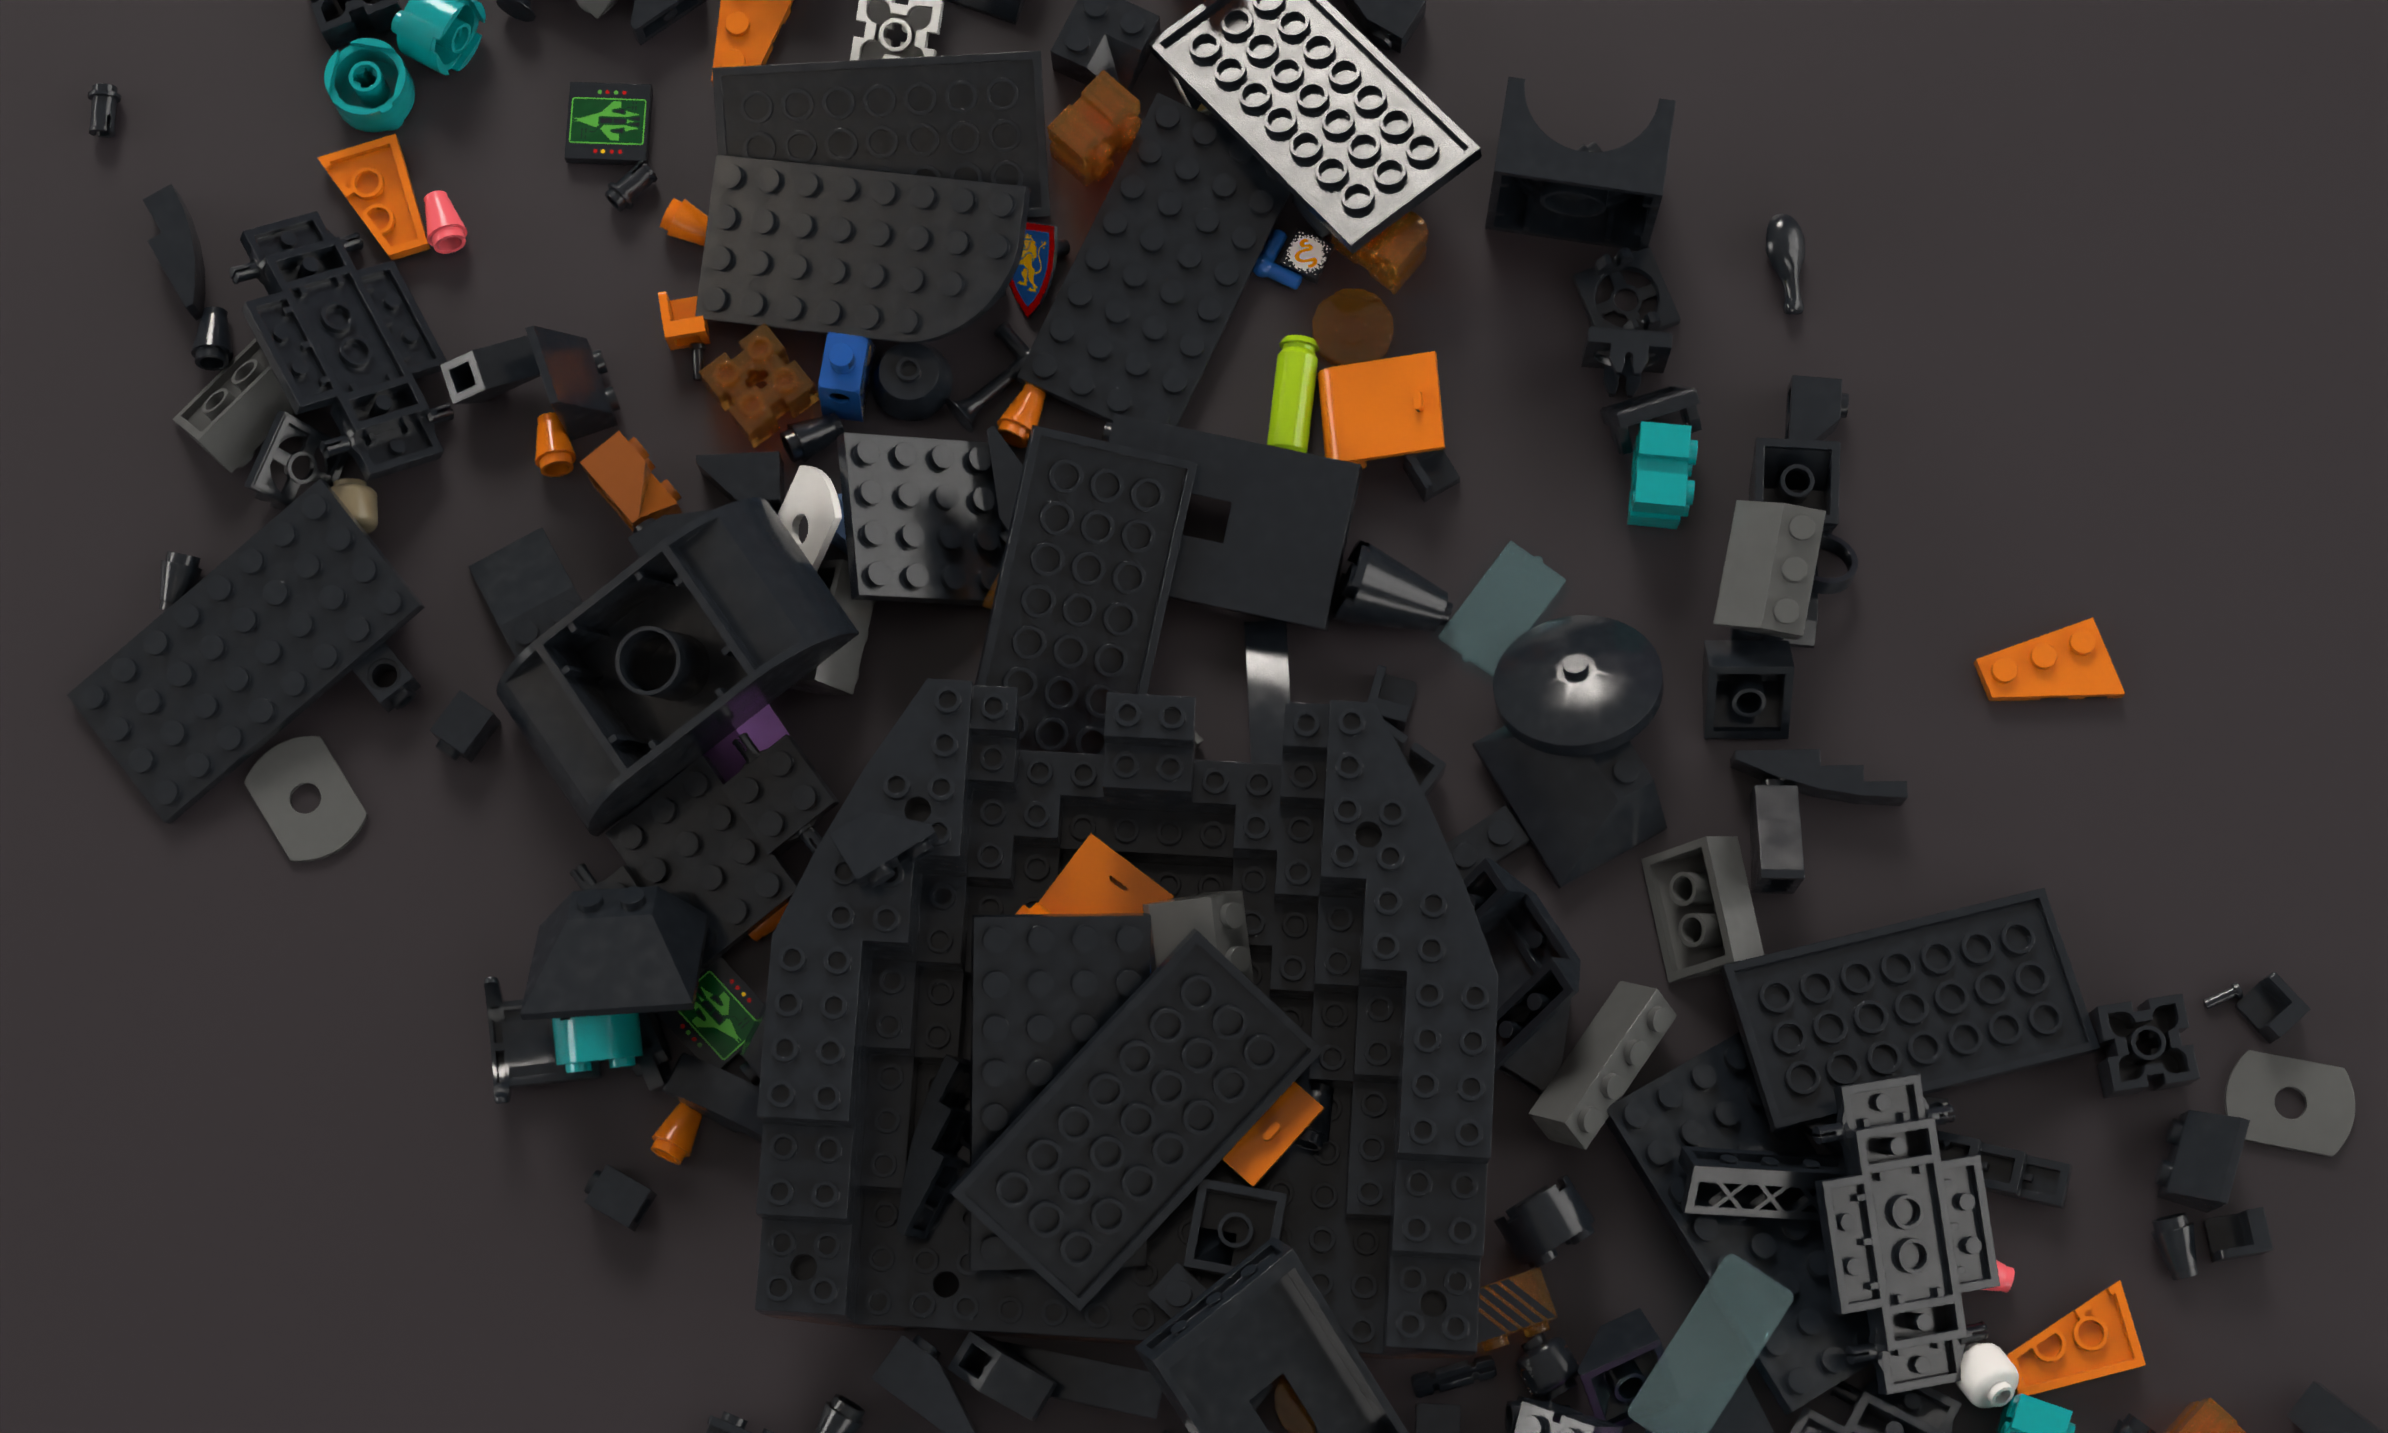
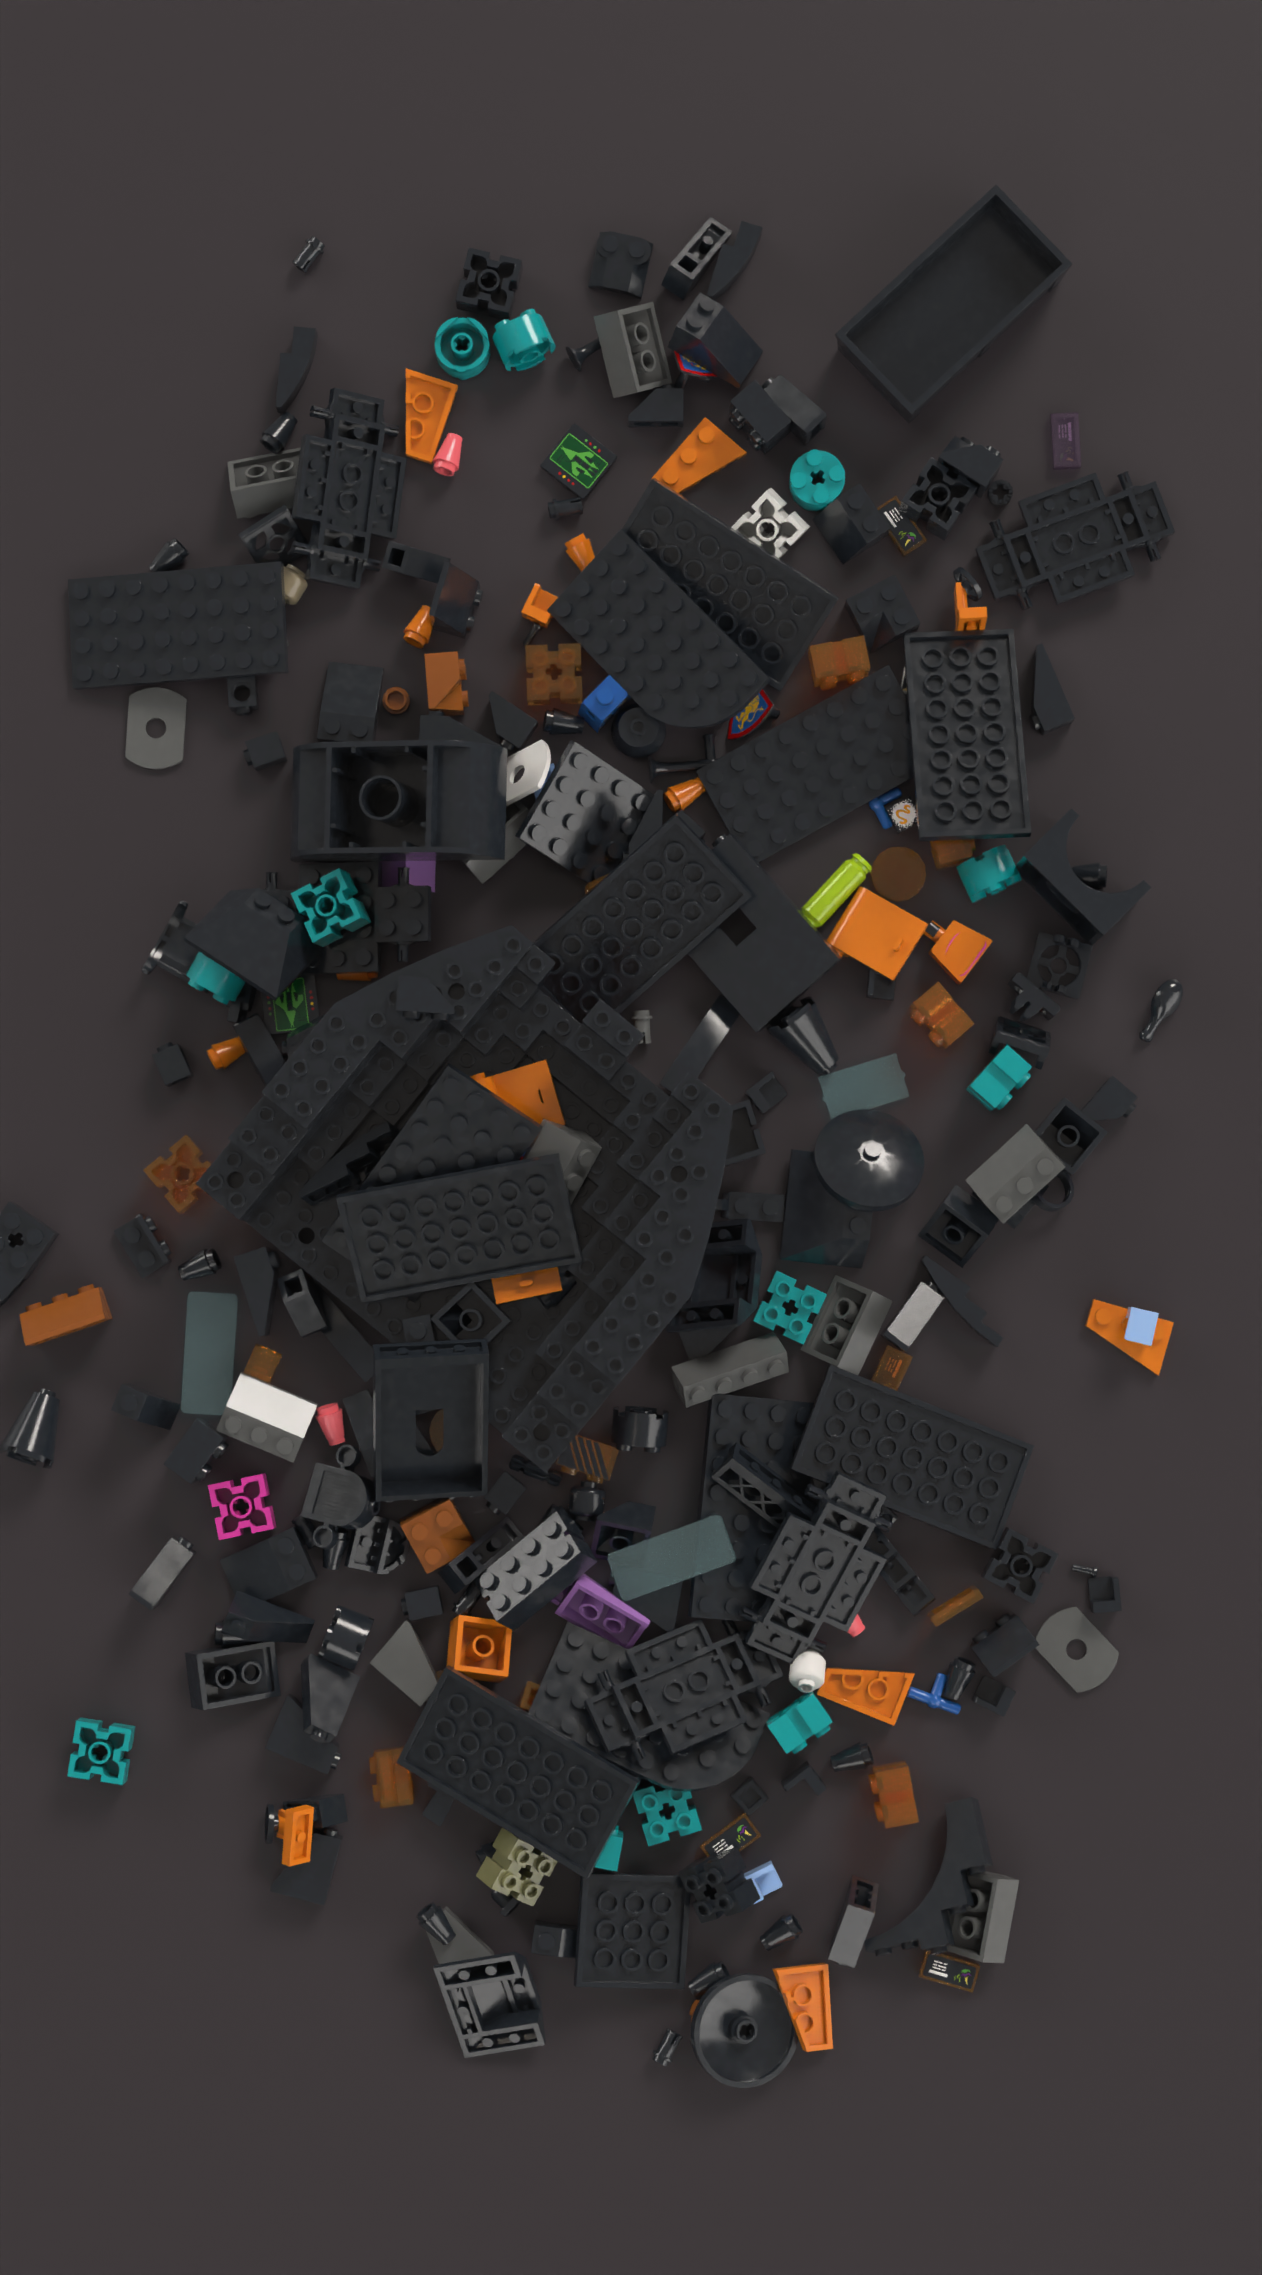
camera: 35 degrees right, 10 degrees up
(585, 554) = (396, 700): none -> dark orange plate
(659, 858) = (316, 903): none -> teal brick
(707, 1338) = (167, 1173): none -> clear orange brick
(1461, 245) = (988, 873): none -> teal brick
(1490, 363) = (956, 948): none -> orange torso
(1533, 451) = (940, 1016): none -> clear orange brick
(1603, 959) = (805, 1301): none -> teal brick
(1796, 919) = (891, 1368): none -> clear orange tile
(2060, 643) = (1140, 1325): none -> light blue panel
(2104, 1155) = (954, 1605): none -> clear orange tile
(2166, 1295) = (934, 1698): none -> blue piece

